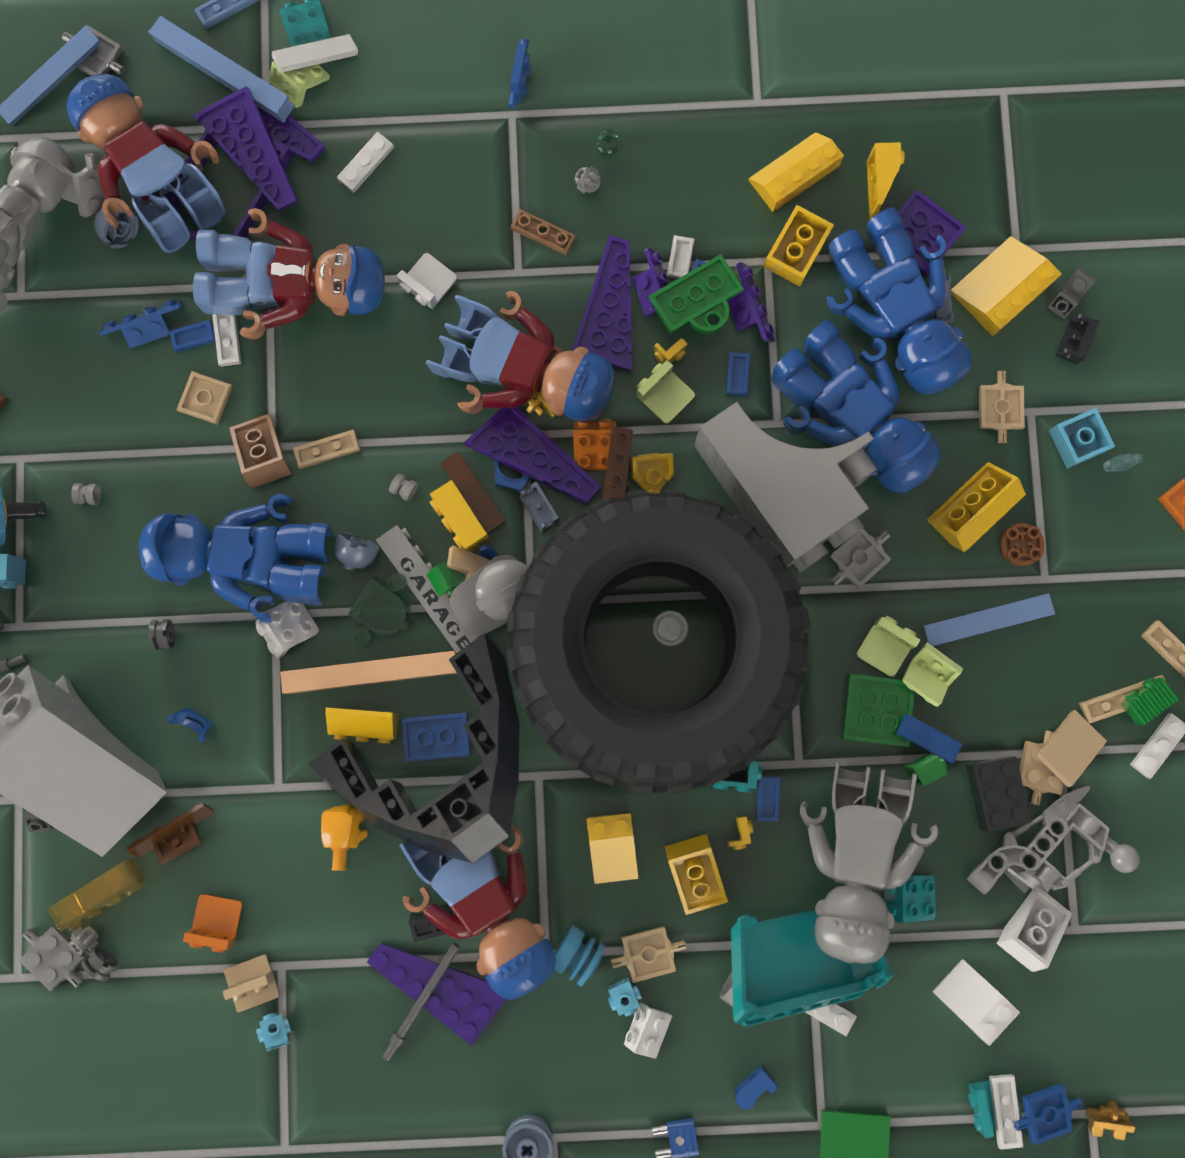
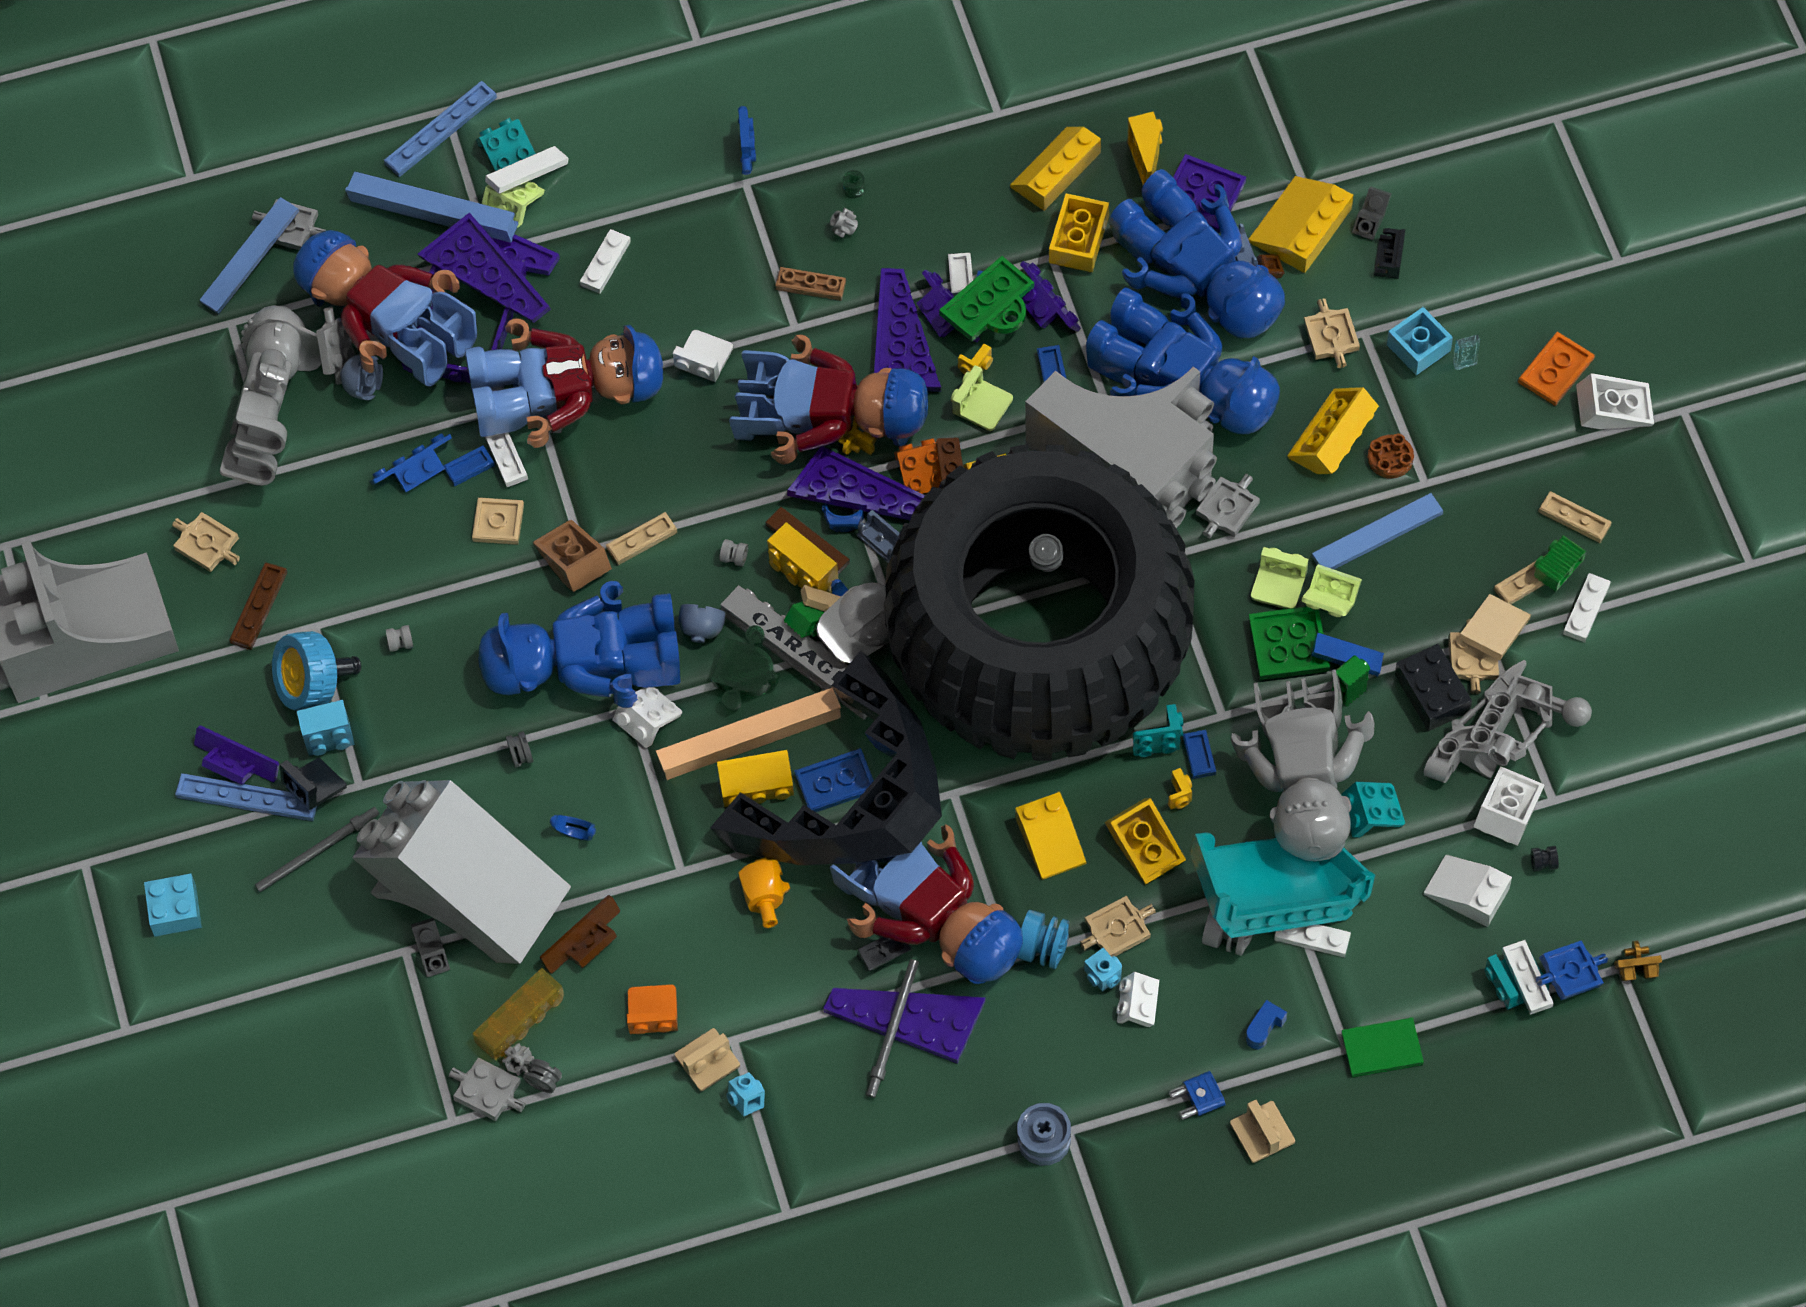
camera: 15 degrees left, 20 degrees down
(964, 322) = (1272, 263): none -> reddish brown tile
(1053, 992) = (1544, 858): none -> black wheel

